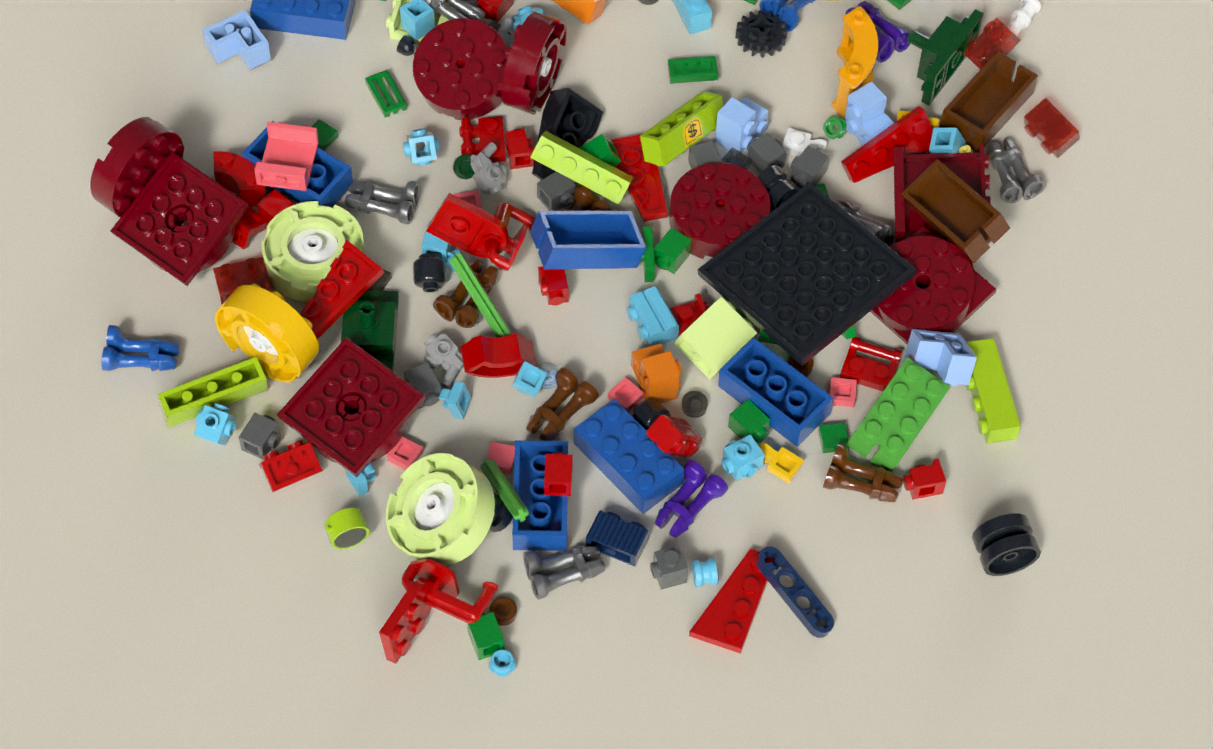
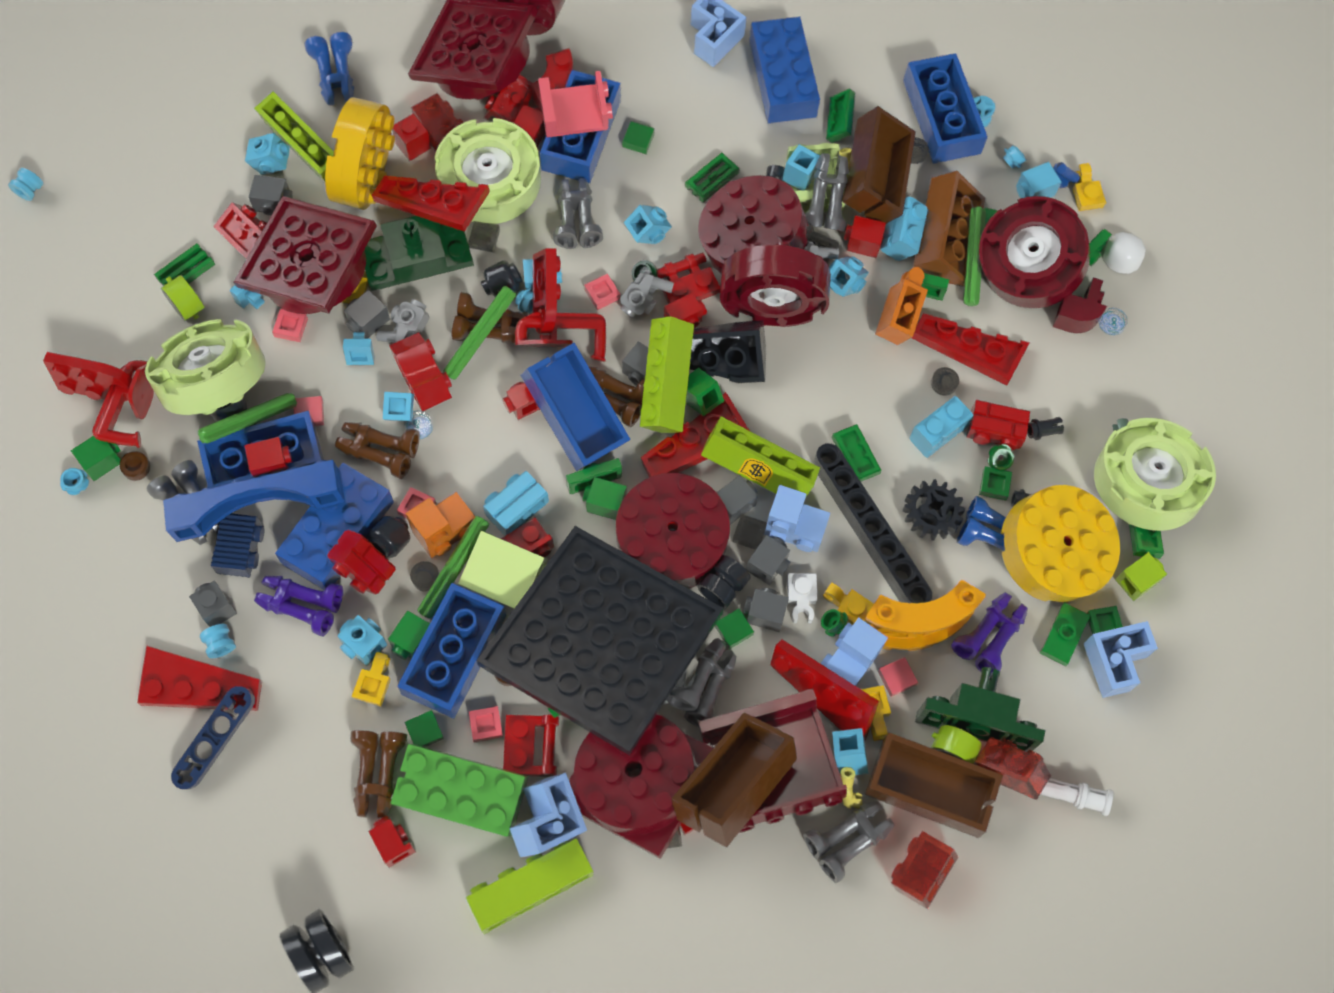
camera: 70 degrees right, 10 degrees up
(153, 646) = (25, 184): none -> medium azure wheel
(300, 510) = (183, 264): none -> green tile
(597, 447) = (197, 513): none -> blue arch
(698, 375) = (452, 568): none -> bright green axle
(765, 77) = (870, 515): none -> black beam
(819, 114) = (852, 604): none -> yellow plate
(894, 102) = (897, 676): none -> coral tile
(960, 76) = (956, 743): none -> lime piece

